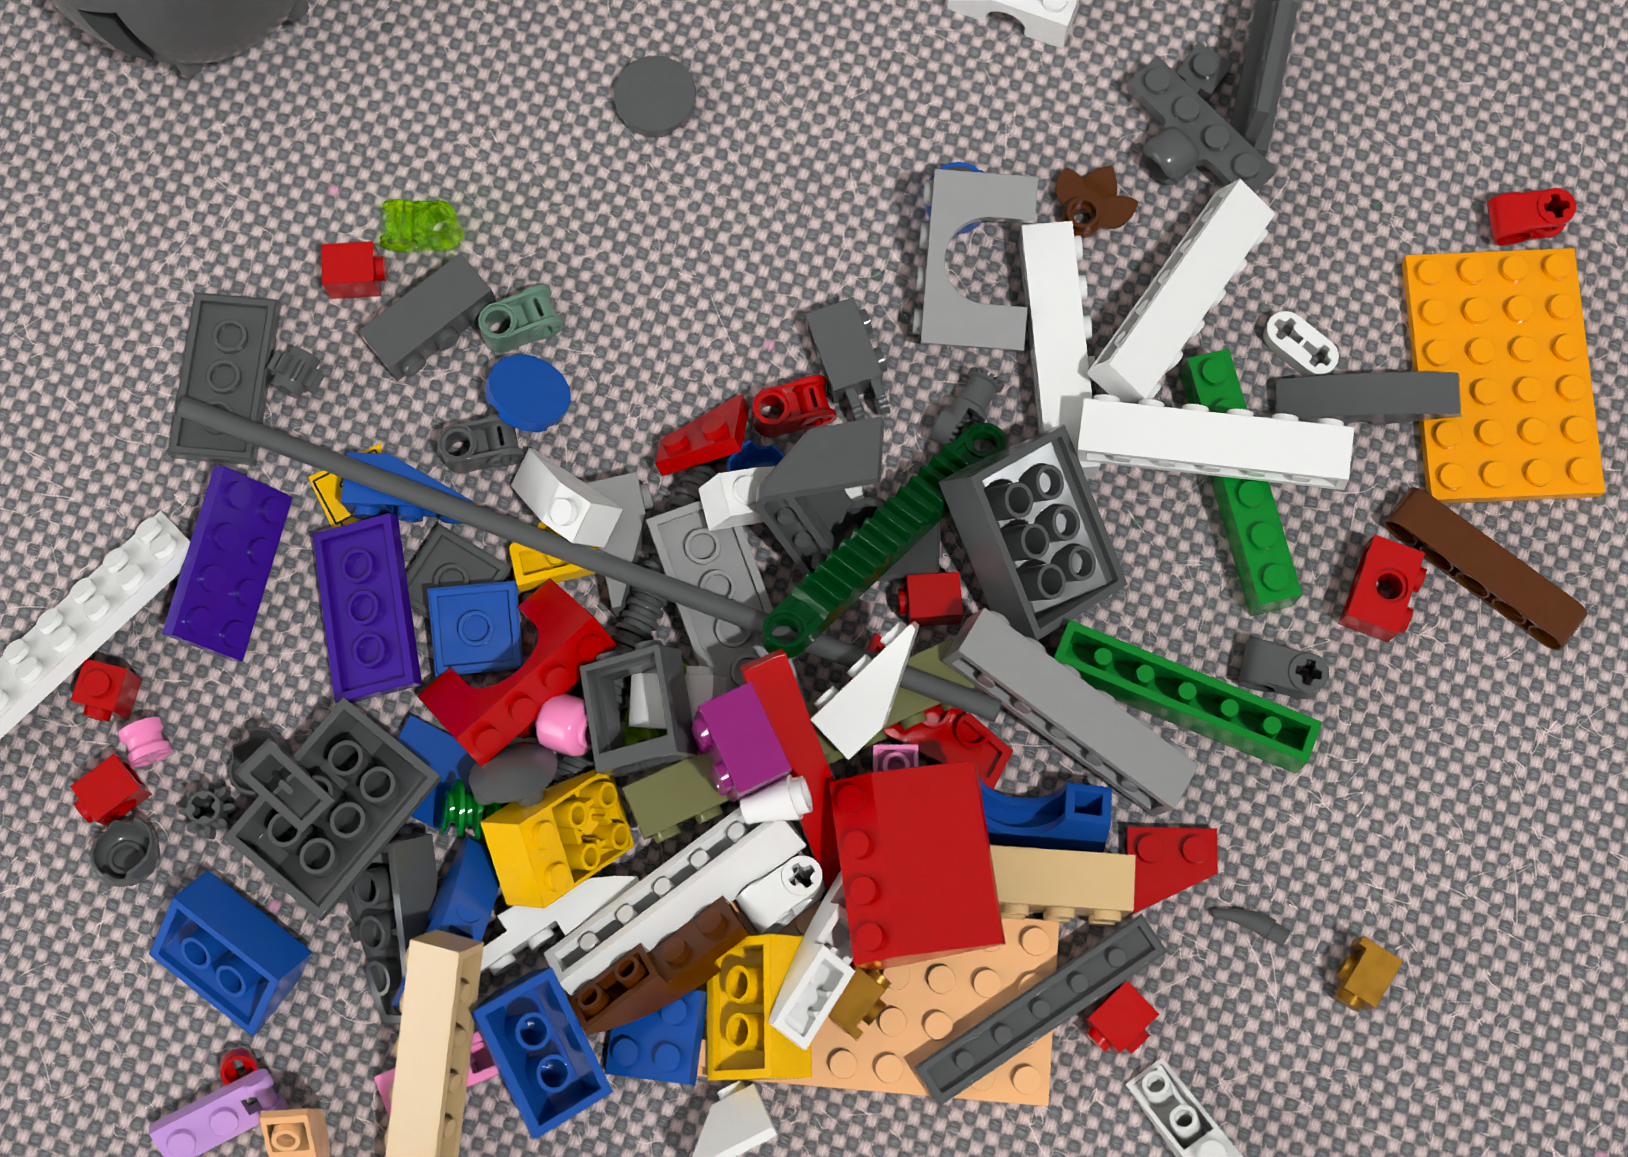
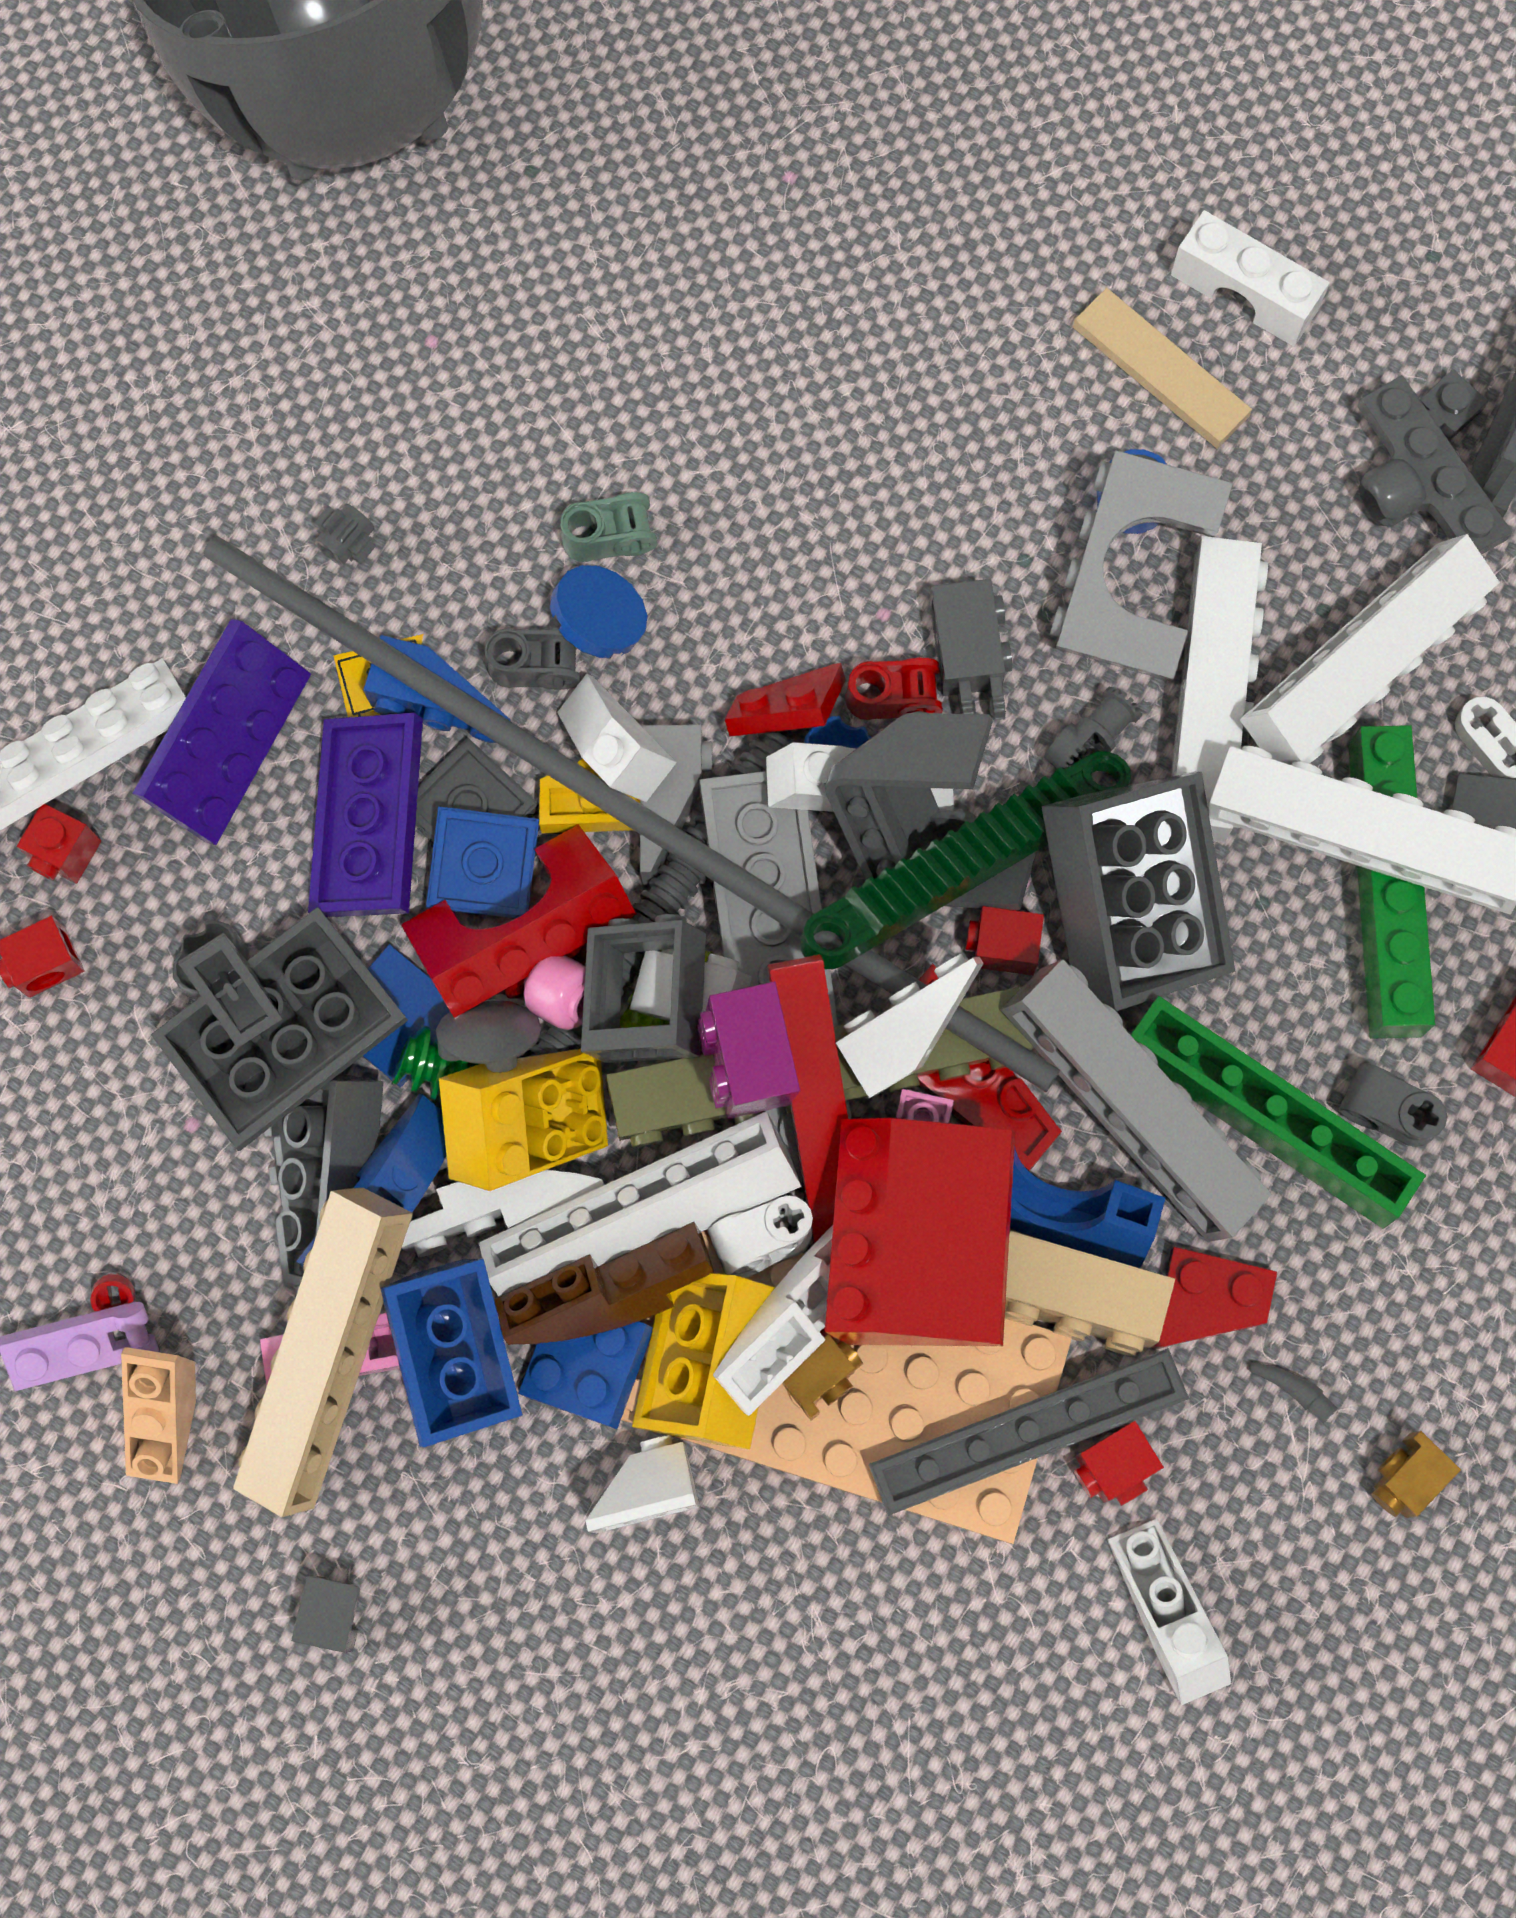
camera: 15 degrees right, 0 degrees up
(125, 853) = (40, 1029): dark grey hair -> none
(145, 742) = (89, 911): bright pink wheel -> none
(199, 816) = (128, 996): dark grey gear -> none
(227, 368) = (270, 516): dark grey tile -> none
(229, 952) = (130, 1164): blue slope -> none
(353, 270) = (433, 434): red brick -> none
(411, 226) = (510, 398): clear neon green piece -> none
(428, 318) = (505, 504): dark grey brick -> none
(655, 96) = (815, 307): dark grey tile -> none
(779, 801) = (779, 1127): white cone -> none
(956, 89) = (1162, 368): none -> tan tile
(1094, 198) = (1294, 524): reddish brown plate -> none

